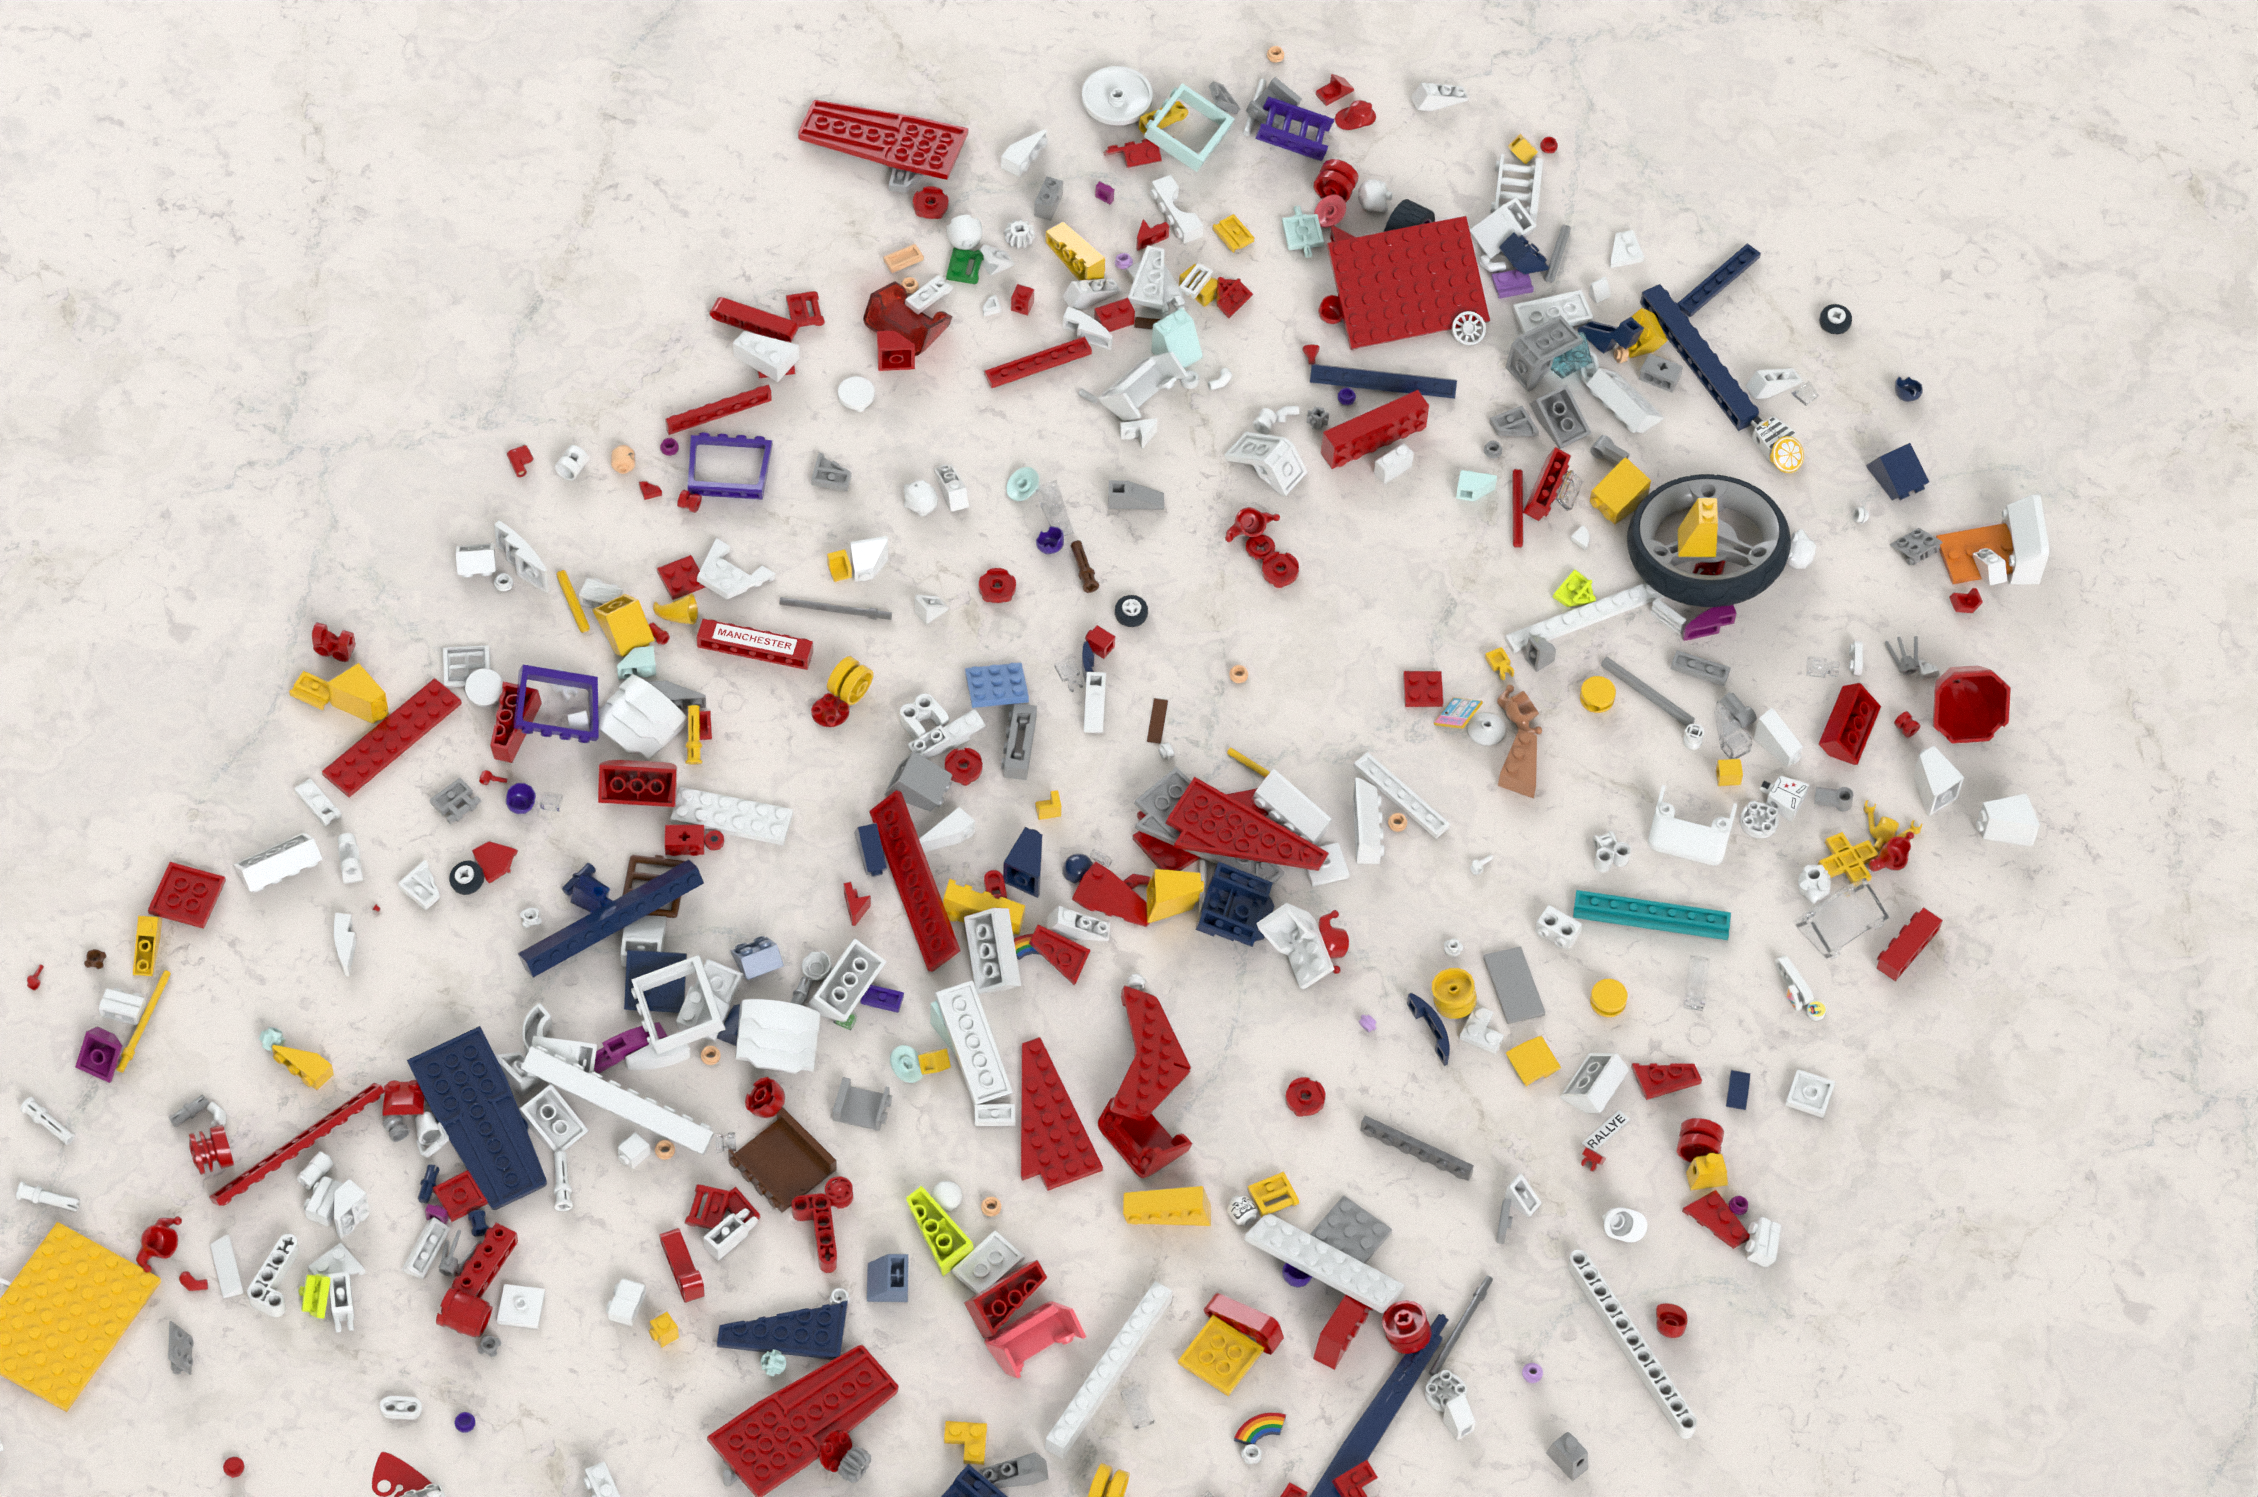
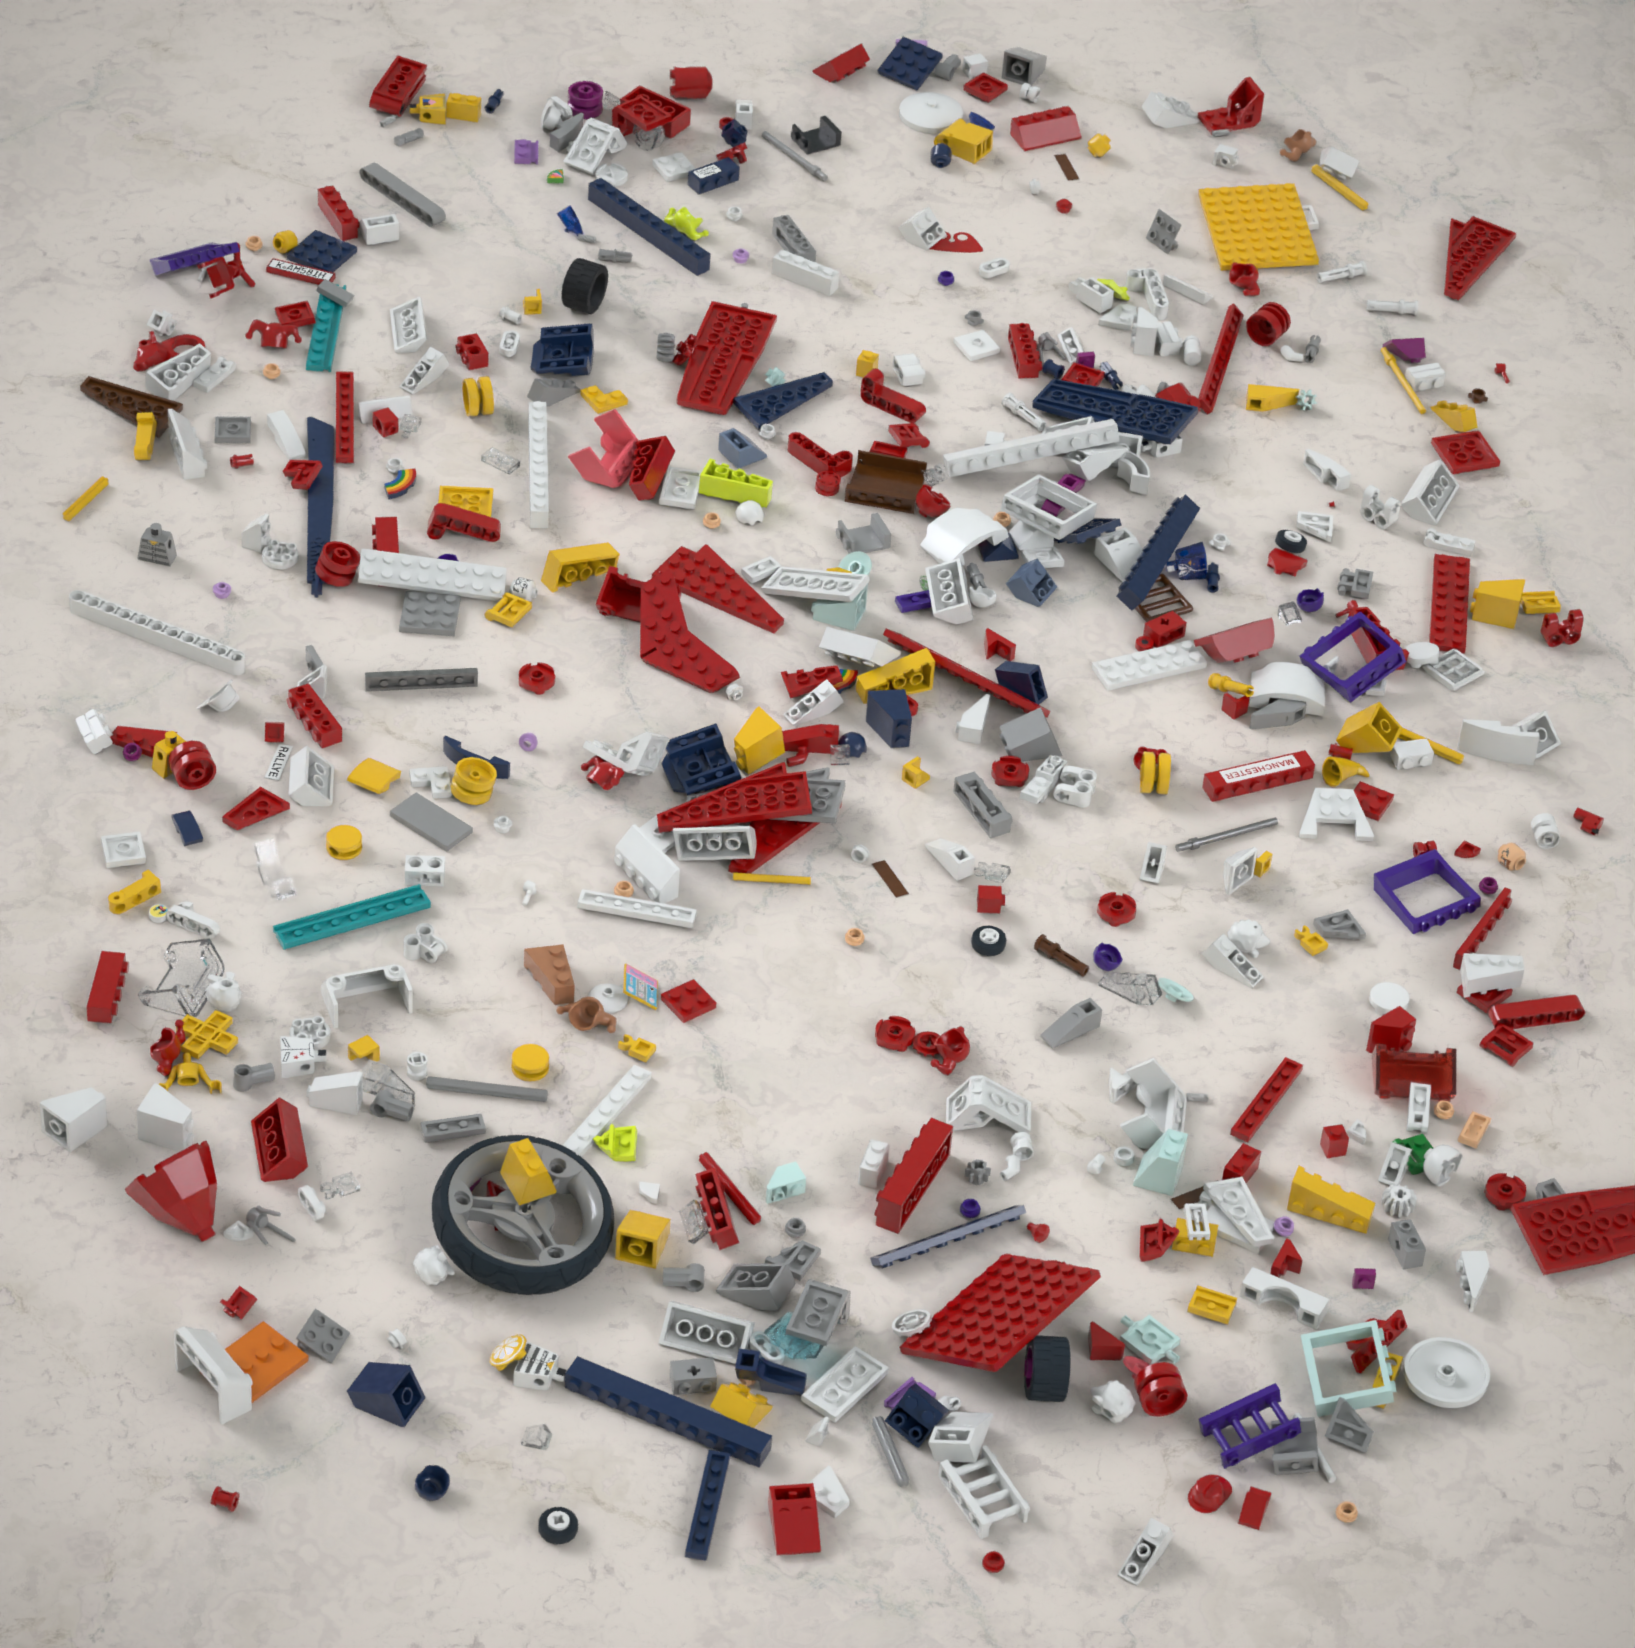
camera: 145 degrees right, 15 degrees down
(191, 1283) = (1199, 271): red arm -> none
(464, 1313) = (1003, 313): red piece -> none
(638, 662) = (1328, 723): light aqua slope -> none
(728, 1234) = (878, 423): white hinge -> none
(867, 472) = (1310, 942): none -> yellow plate
(996, 685) = (1040, 830): medium blue plate -> none
(1087, 326) = (1272, 1147): white slope -> none
(1087, 660) = (981, 877): dark blue slope -> none
(1089, 292) = (1280, 1185): white slope -> none
(1479, 1295) = (299, 616): flat silver bar -> none
(1522, 148) = (1015, 1540): yellow panel -> none
(1539, 653) = (607, 1061): light grey slope -> none
(1544, 1156) = (314, 715): none -> red brick
(1666, 237) = (794, 1519): none -> red slope
(1671, 1320) = (136, 657): red cap -> none
(1771, 382) = (574, 1423): white slope -> none
(1827, 1037) = (135, 893): none -> yellow leg
(1907, 724) = (225, 1167): red wheel -> none
(1990, 566) = (234, 1337): white slope -> none
(2063, 456) = (225, 1498): none -> red bush

